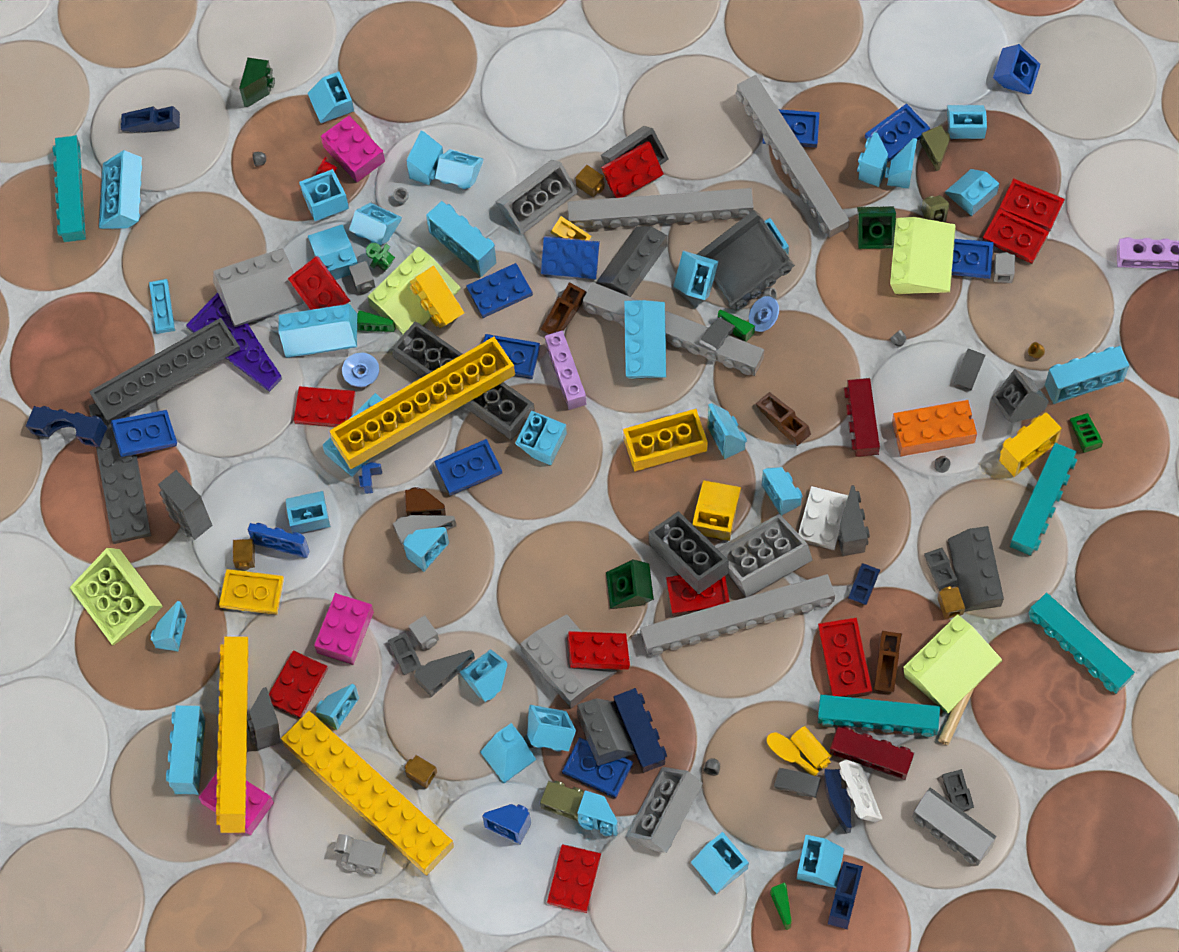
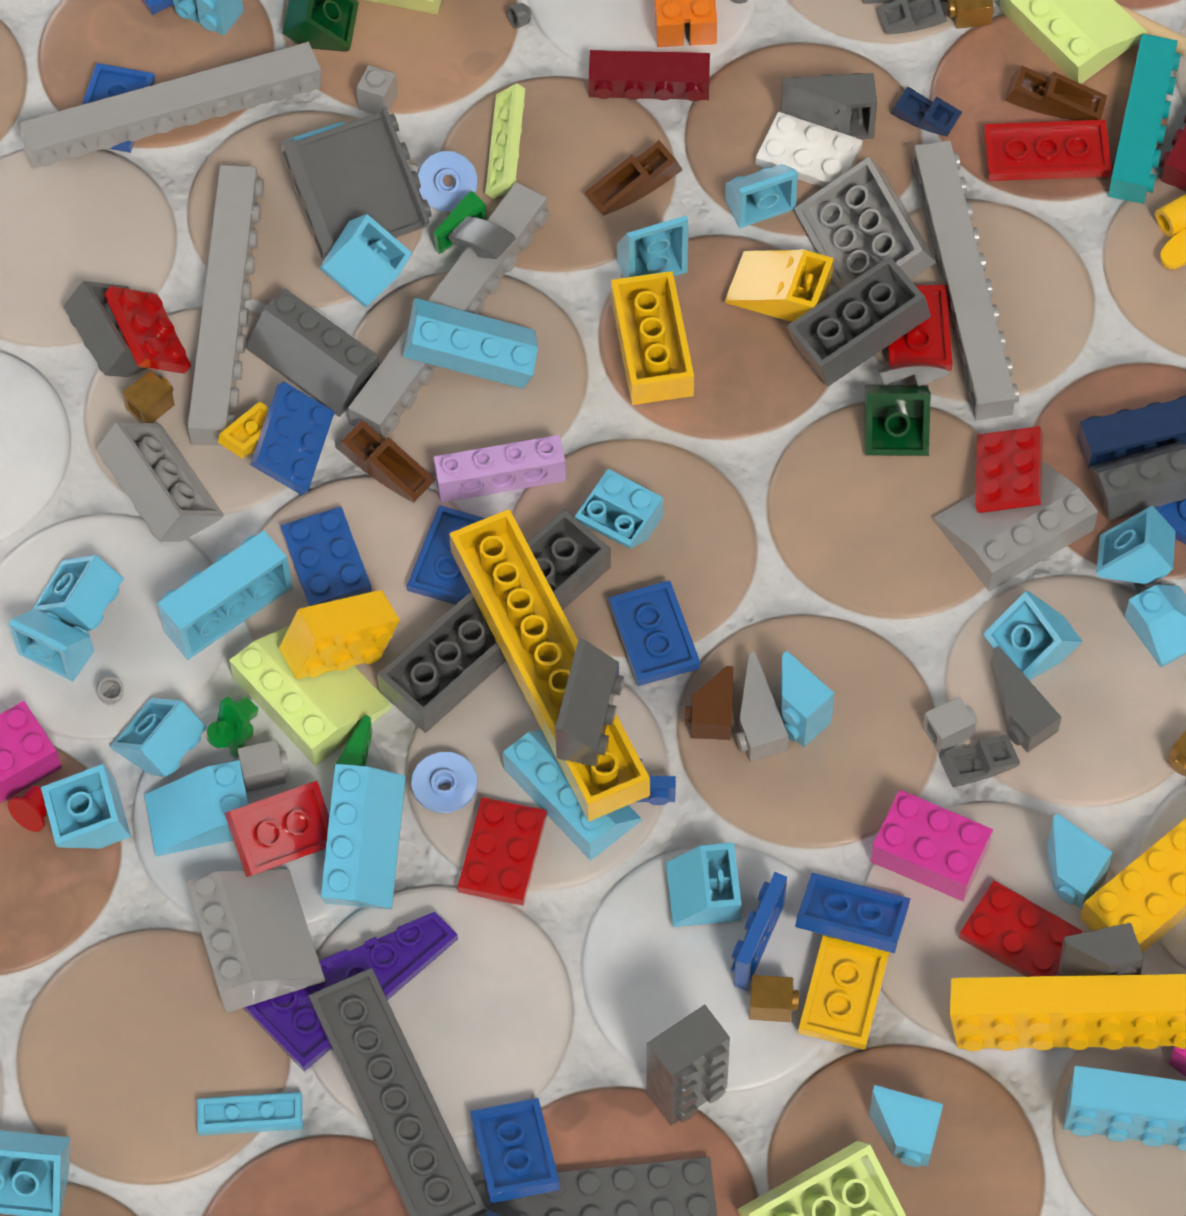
camera: 85 degrees left, 5 degrees down
(297, 590) = (853, 912): none -> blue plate
(381, 416) = (588, 705): none -> dark grey slope
(660, 592) = (922, 372): none -> slope
(805, 342) = (505, 141): none -> yellowish green plate
(823, 266) = (377, 90): none -> light grey brick

